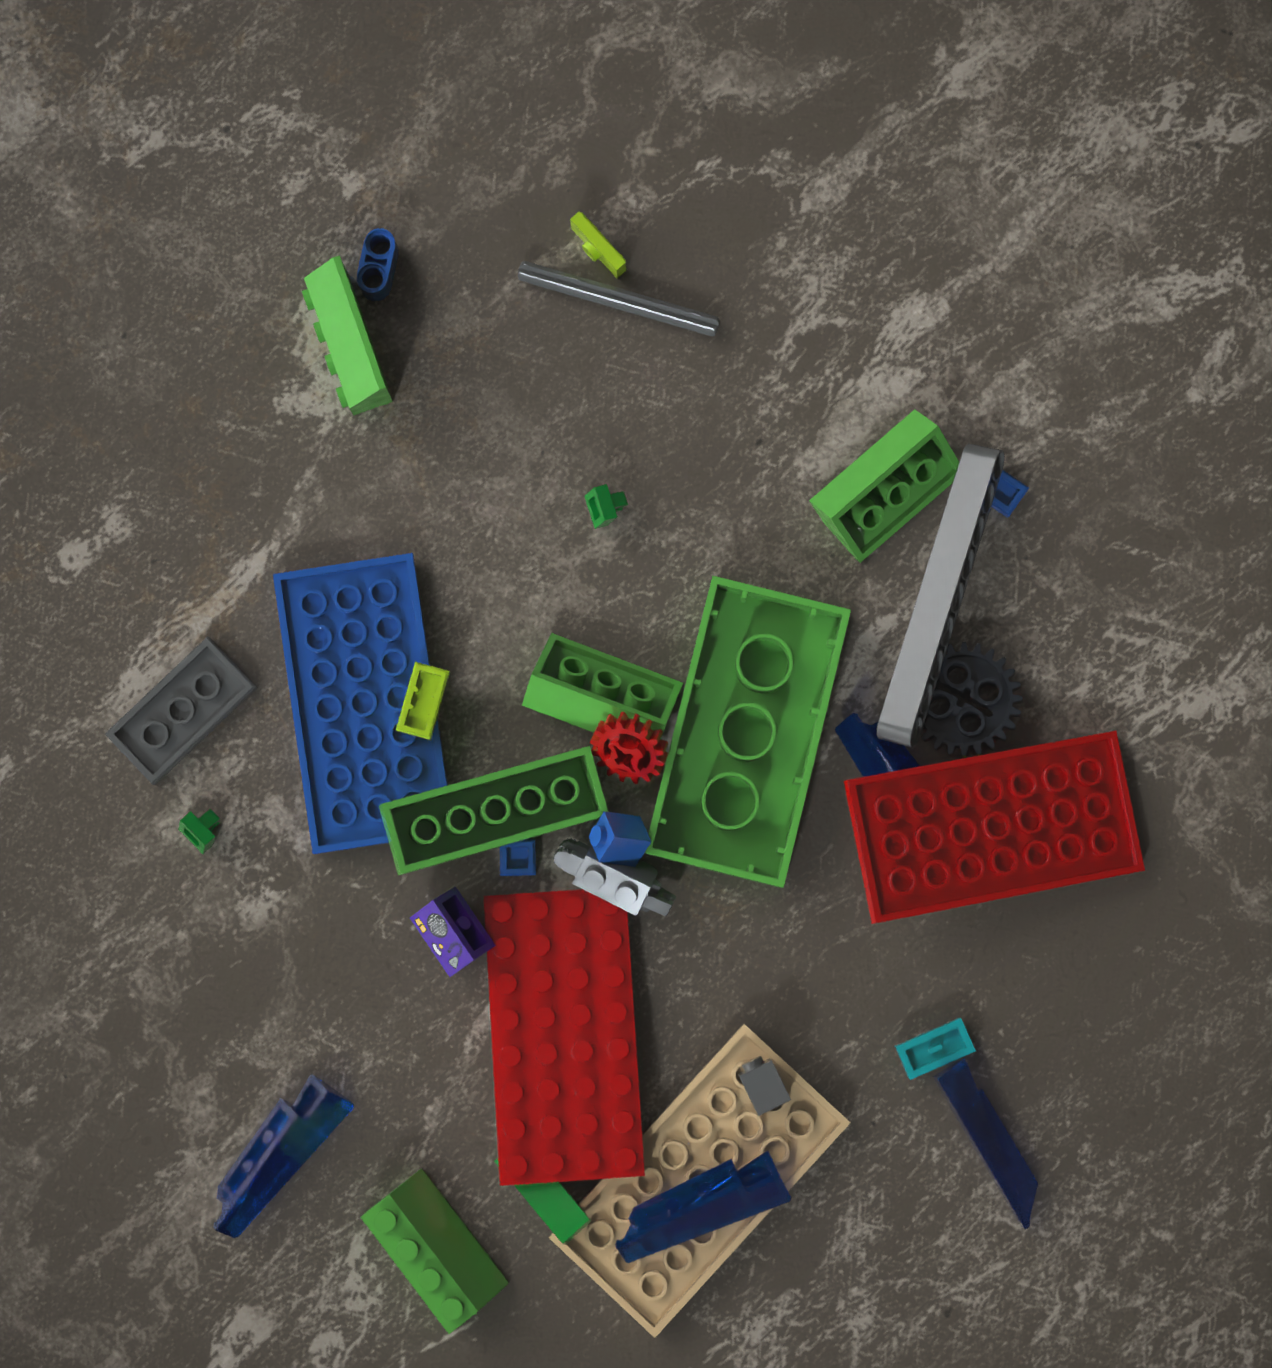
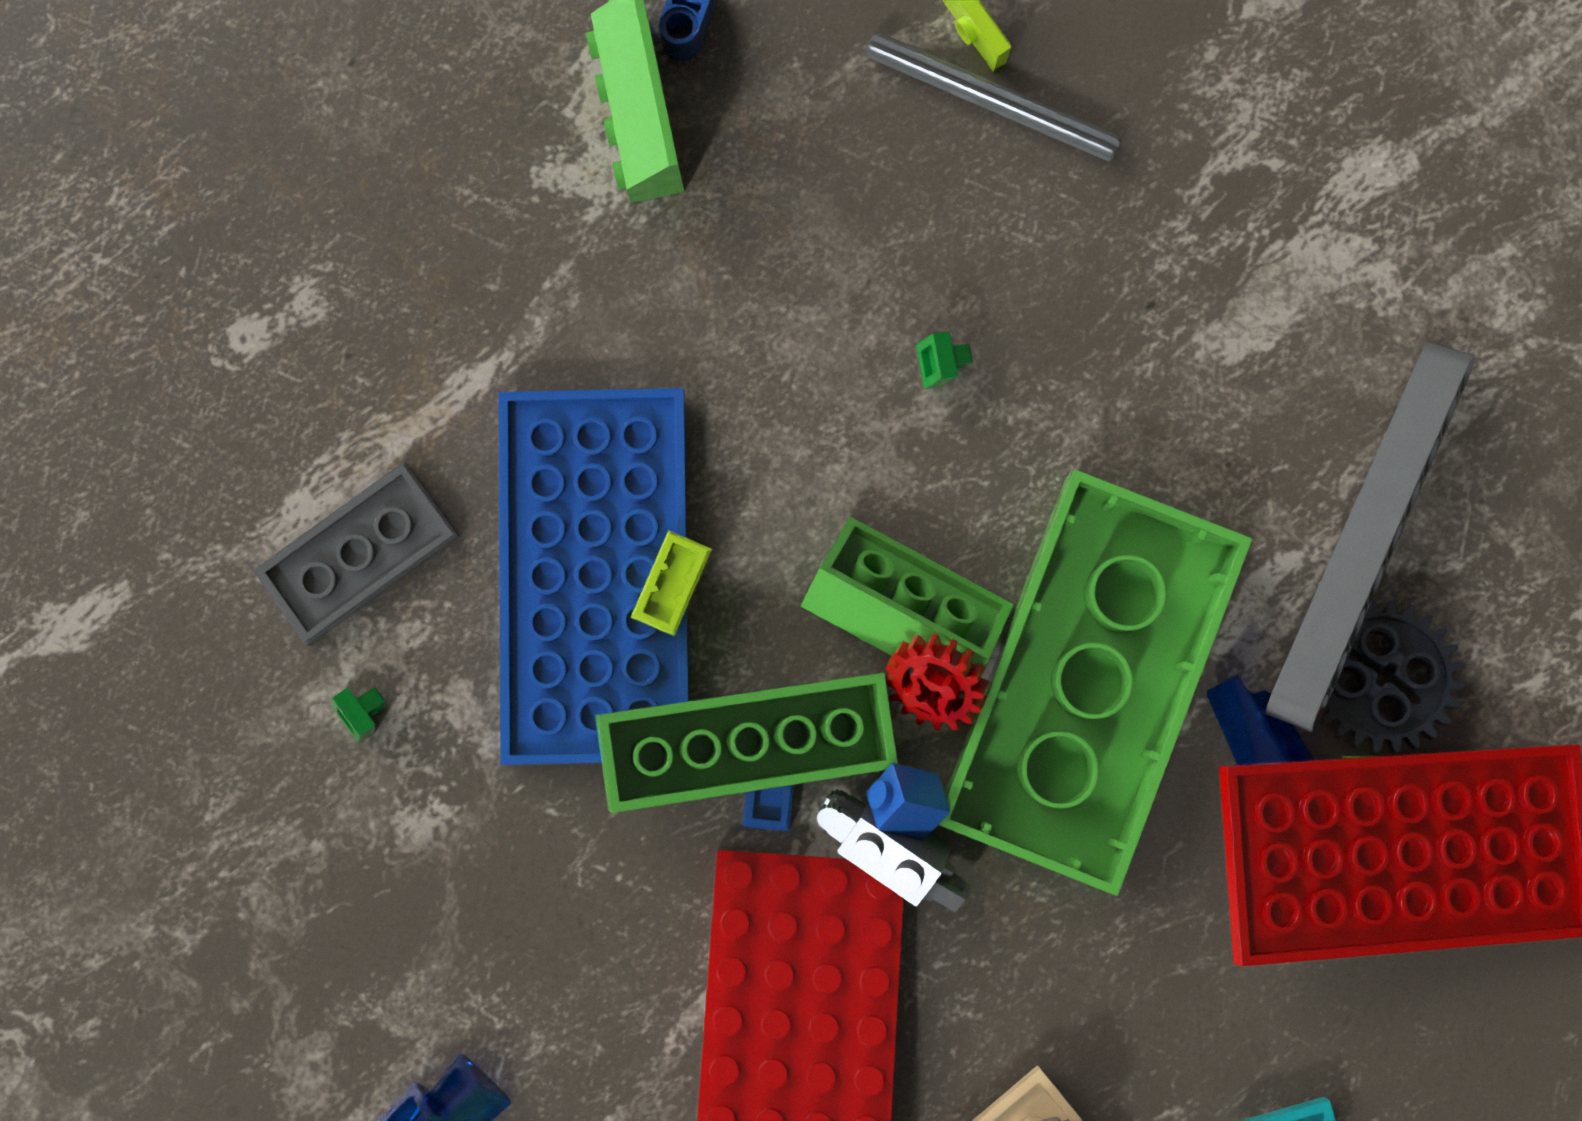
camera: 10 degrees right, 0 degrees up
(452, 931) = (670, 893): dark purple brick -> none
(887, 485) = (1315, 381): bright green slope -> none
(1008, 494) = (1470, 415): blue tile -> none

